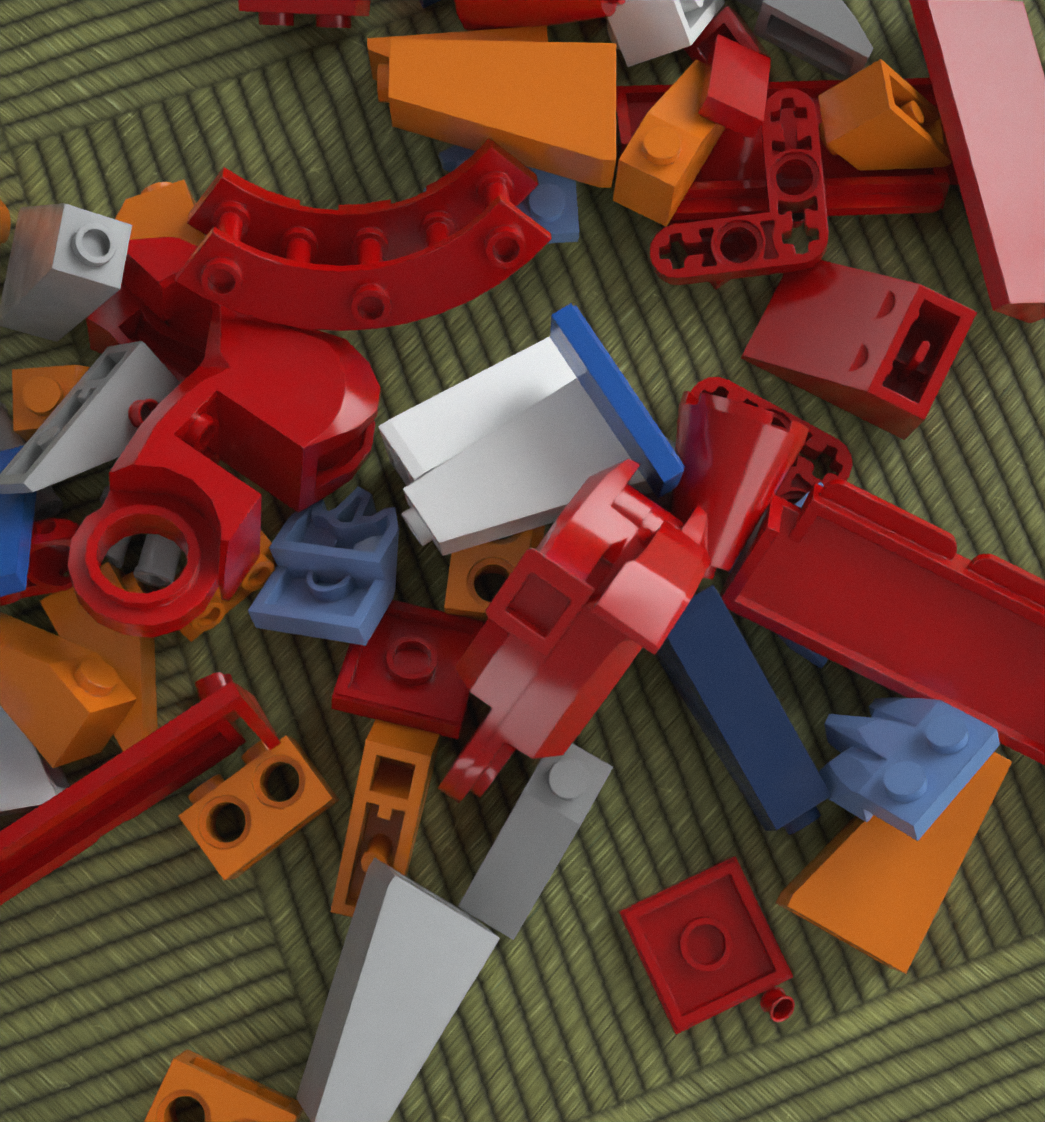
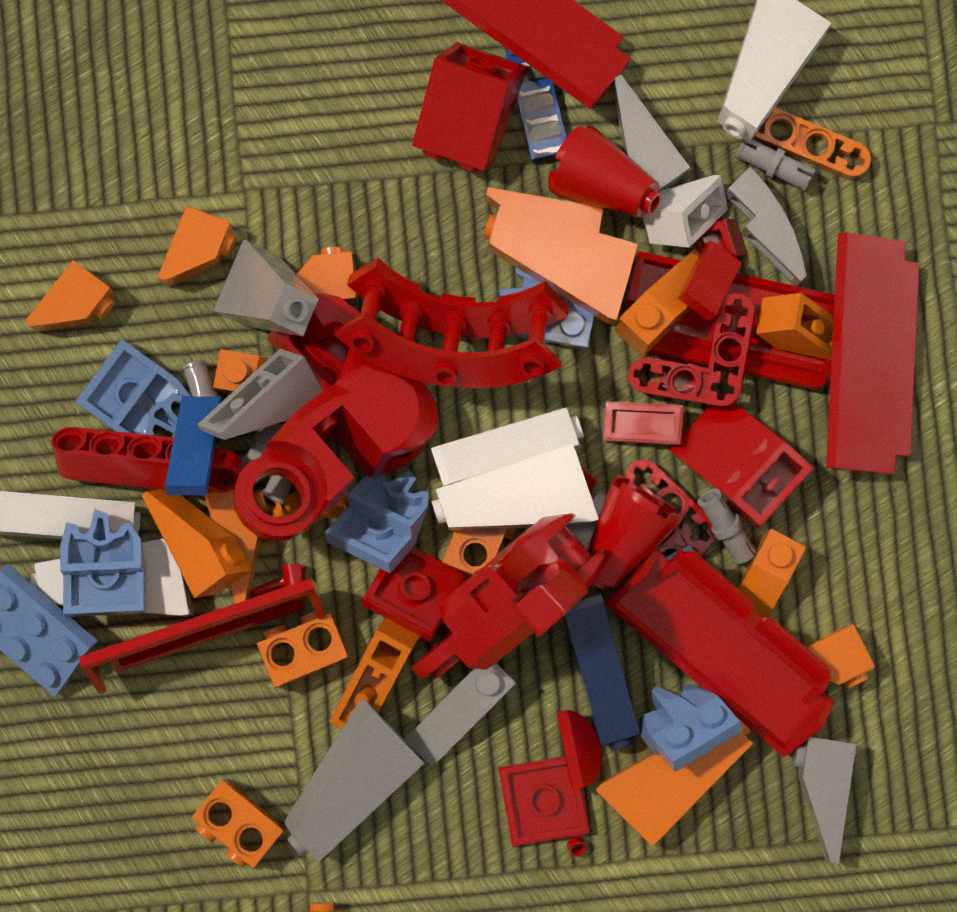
camera: 20 degrees right, 5 degrees up
(134, 411) = (290, 399): red piece -> none
(616, 400) = (572, 473): blue tile -> none
(694, 326) = (644, 423): none -> tile
(741, 847) = (580, 748): none -> red tile
(865, 439) = (726, 526): none -> light grey pin
(954, 481) = (770, 570): none -> orange slope

